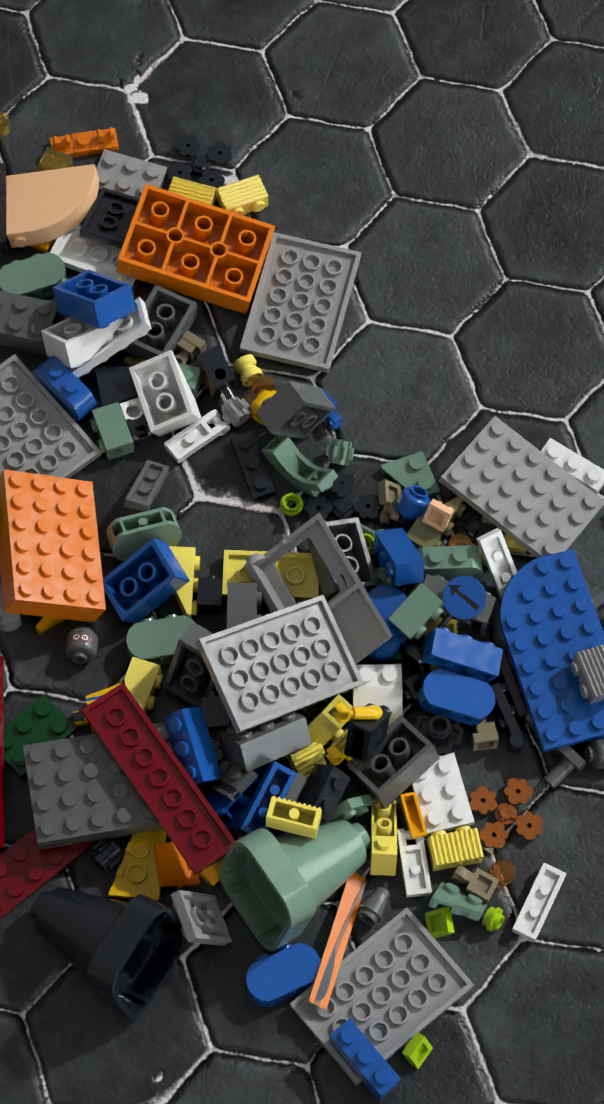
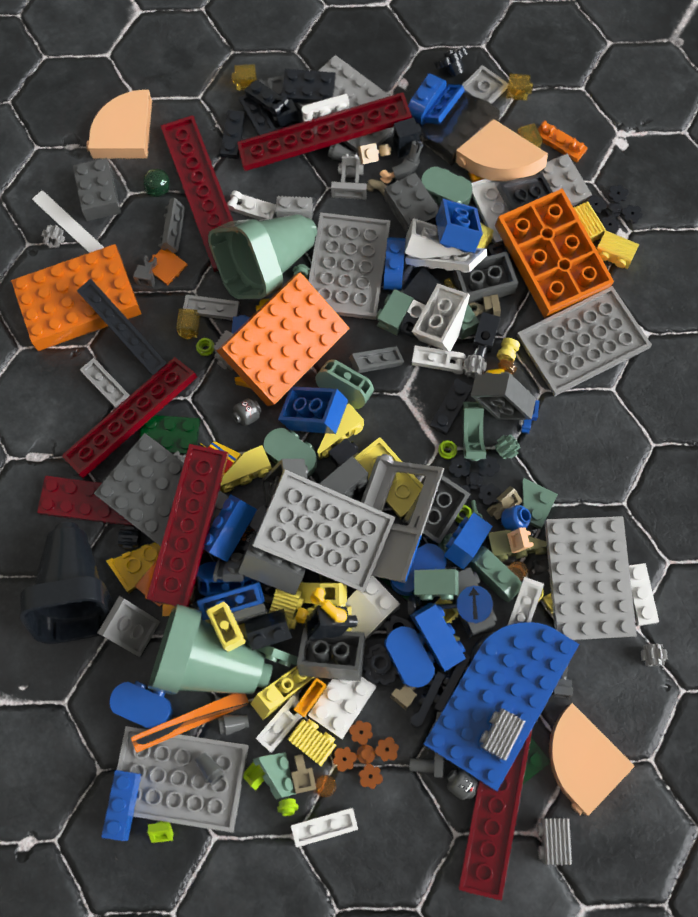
camera: 55 degrees right, 5 degrees up
(400, 955) = (210, 769): none -> dark grey cone

